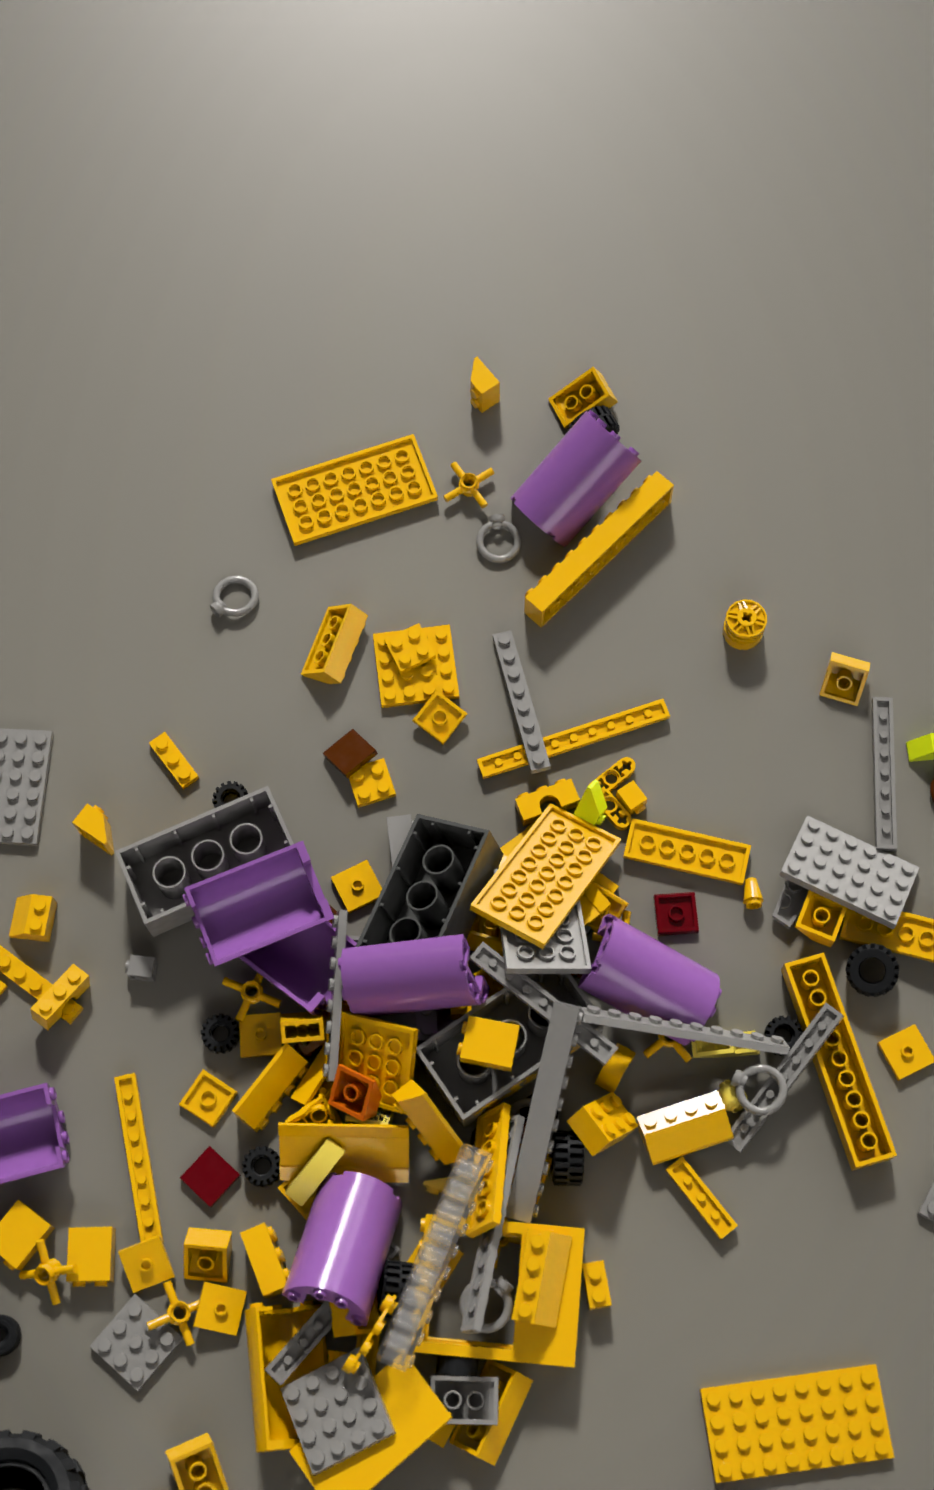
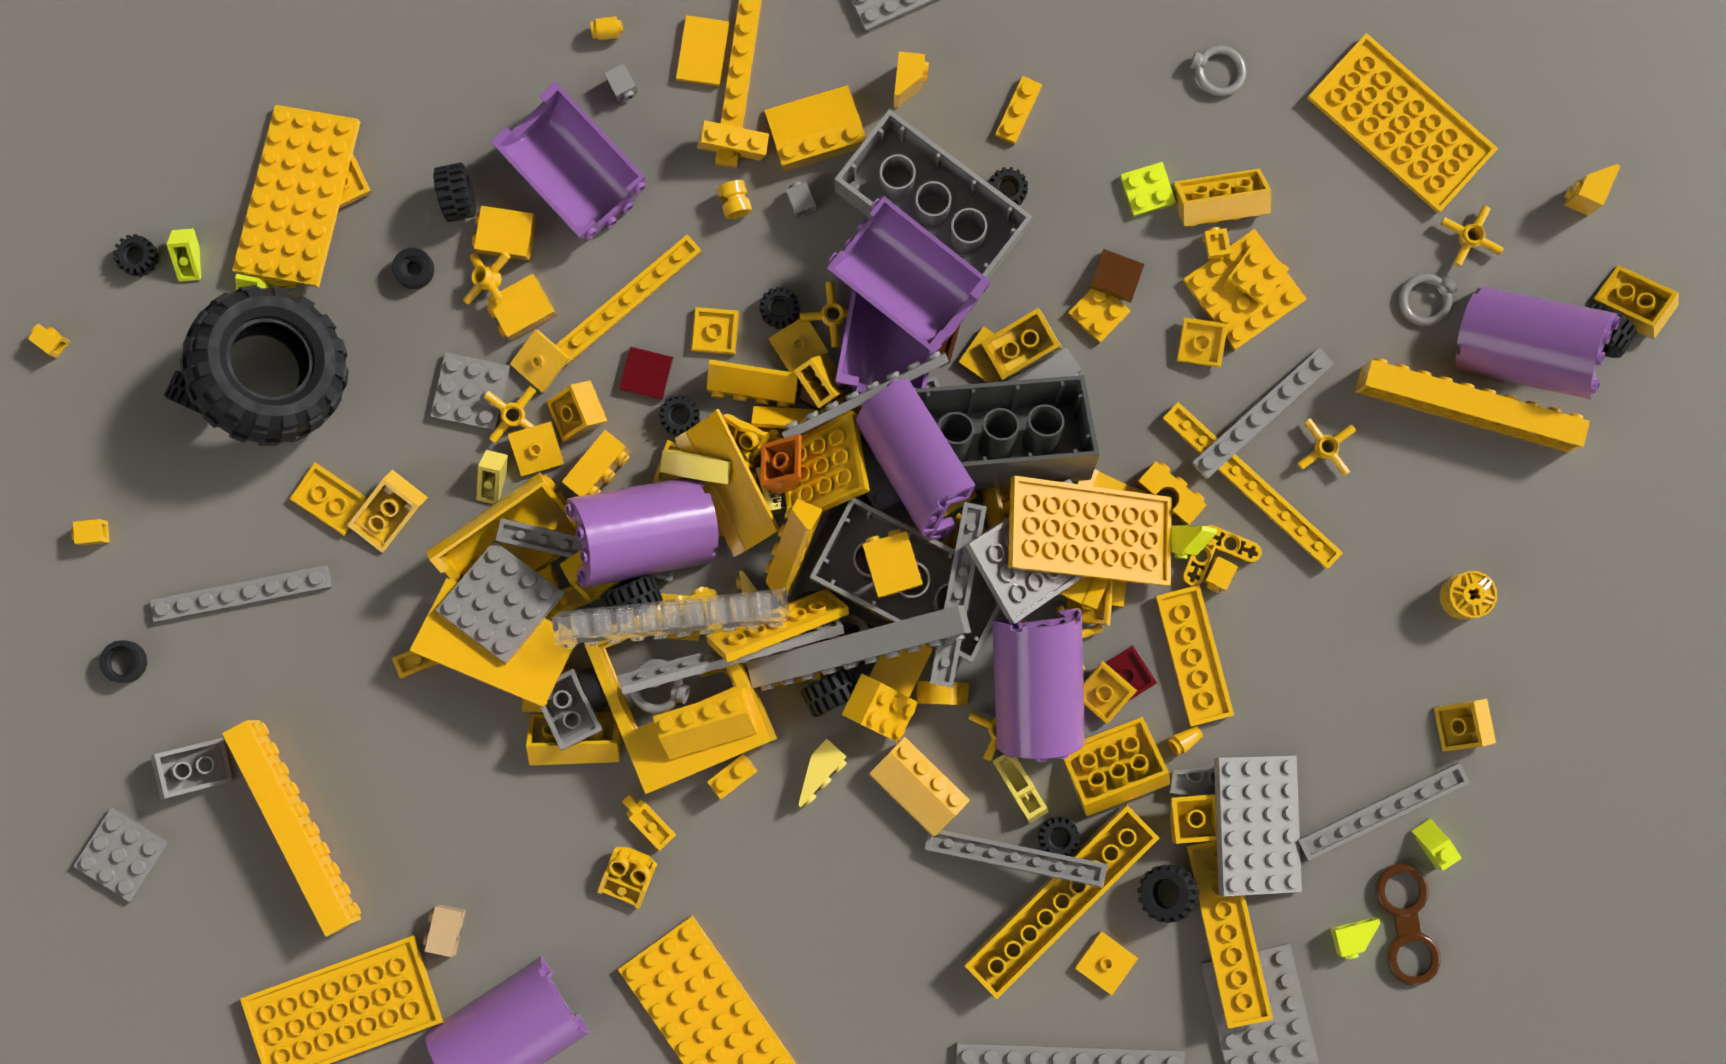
camera: 60 degrees right, 15 degrees up
(33, 917) = (794, 70): yellow slope -> none
(91, 925) = (815, 128): none -> yellow slope
(111, 1022) = (734, 199): none -> yellow wheel
(222, 1363) = (491, 476): none -> light yellow slope
(295, 696) = (1147, 189): none -> neon yellow plate
(363, 853) = (1021, 344): none -> yellow slope
(368, 665) = (1216, 243): none -> yellow bracket
(387, 1306) = (544, 593): yellow plant -> none
(573, 661) = (1318, 450): none -> yellow bar
(580, 1089) = (901, 671): none -> yellow brick
(599, 1383) = (648, 822): none -> yellow hinge
(625, 1203) = (821, 765): none -> light yellow slope
(637, 1427) = (628, 875): none -> yellow slope
(683, 934) = (1106, 692): none -> yellow tile
(690, 1031) = (1005, 742): light grey plate -> none
(701, 1198) = (863, 833): yellow plate -> none
(728, 1097) = (974, 816): light yellow head -> none
(740, 1079) = (991, 816): light grey piece -> none
(748, 958) = (1116, 767): none -> yellow slope

